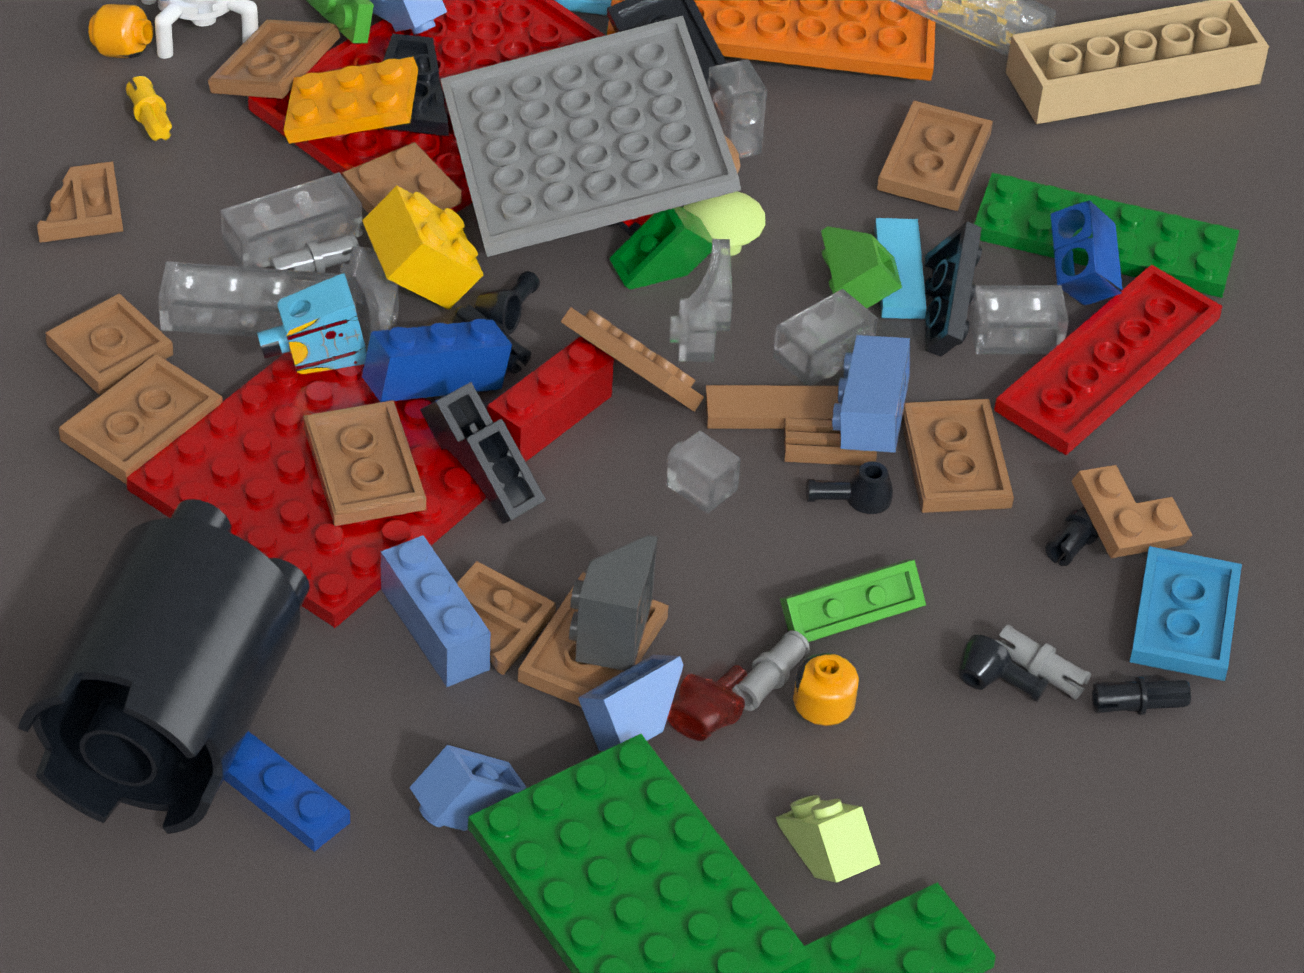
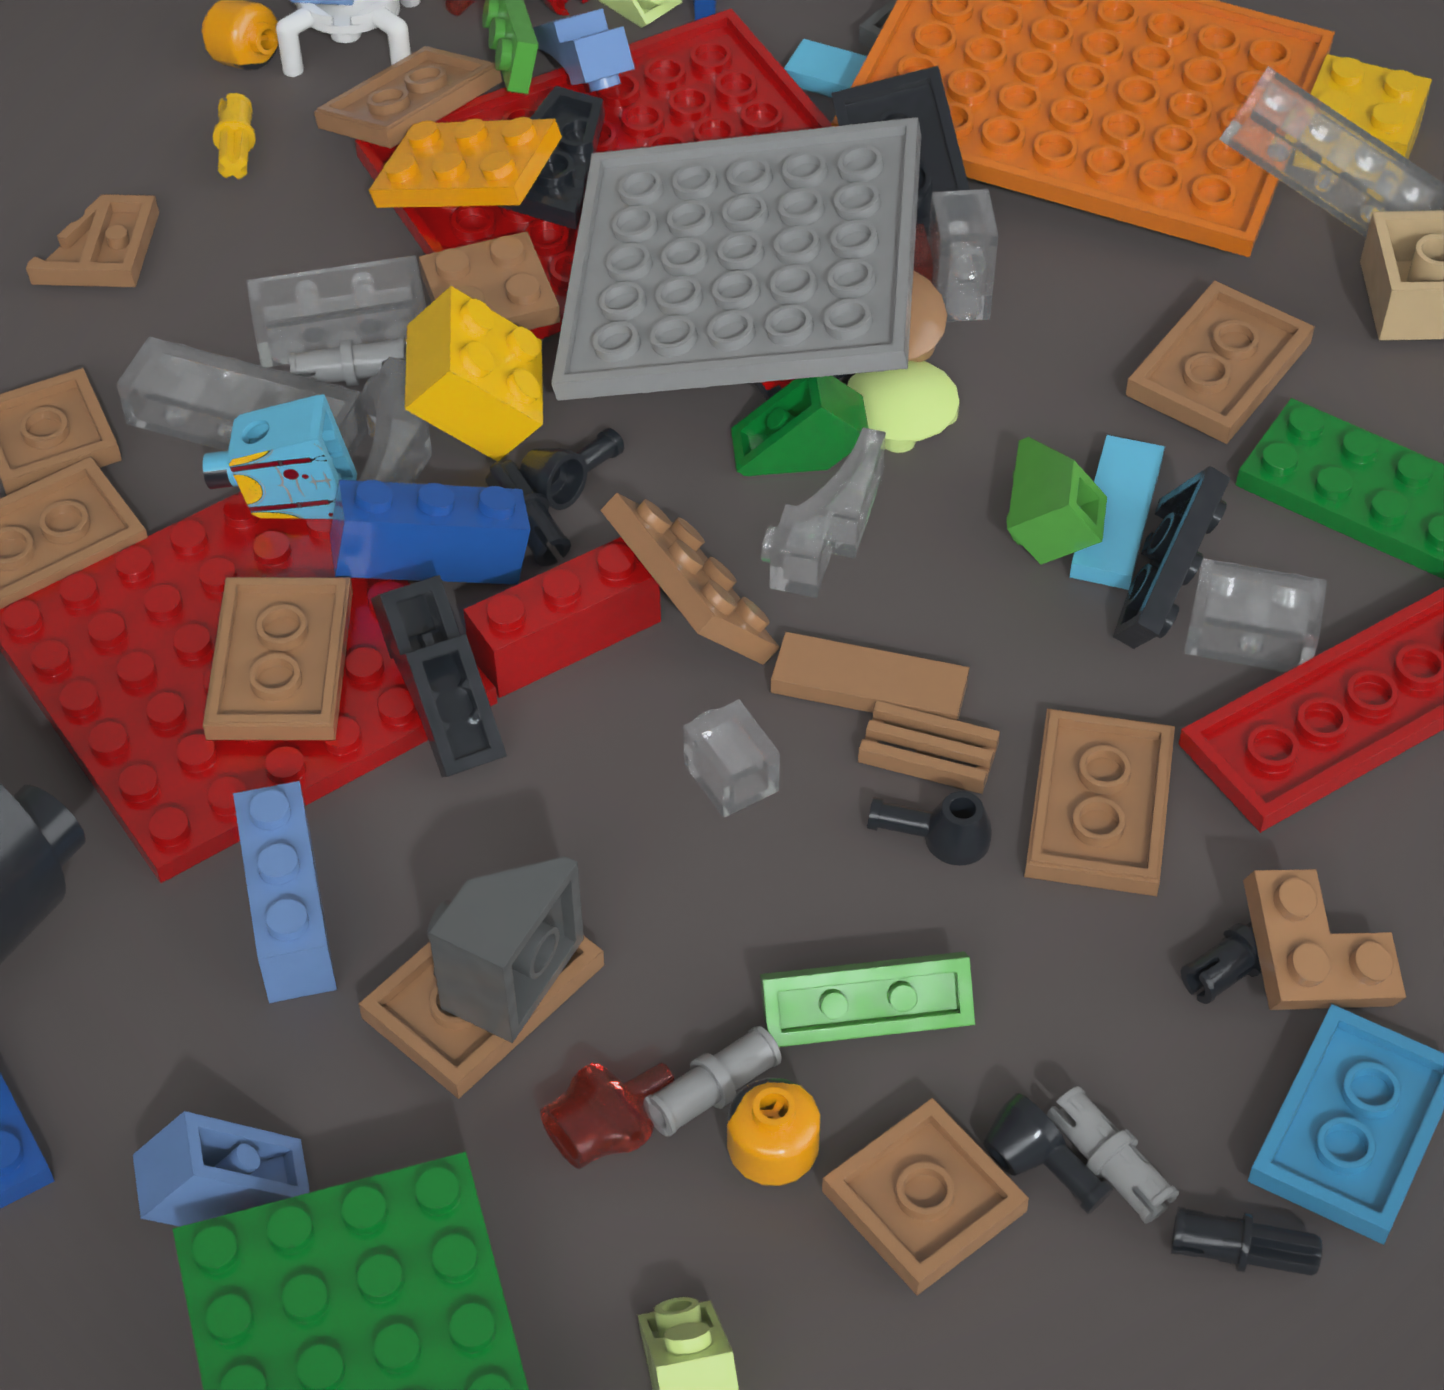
camera: 20 degrees right, 5 degrees up
(508, 610) = (373, 912): medium nougat wing -> none
(632, 701) = (488, 1094): slope -> none
(816, 339) = (973, 594): clear brick -> none
(873, 393) = (1004, 691): medium blue brick -> none
(933, 709) = (924, 1195): none -> medium nougat plate
(1101, 249) = (1397, 542): blue piece -> none

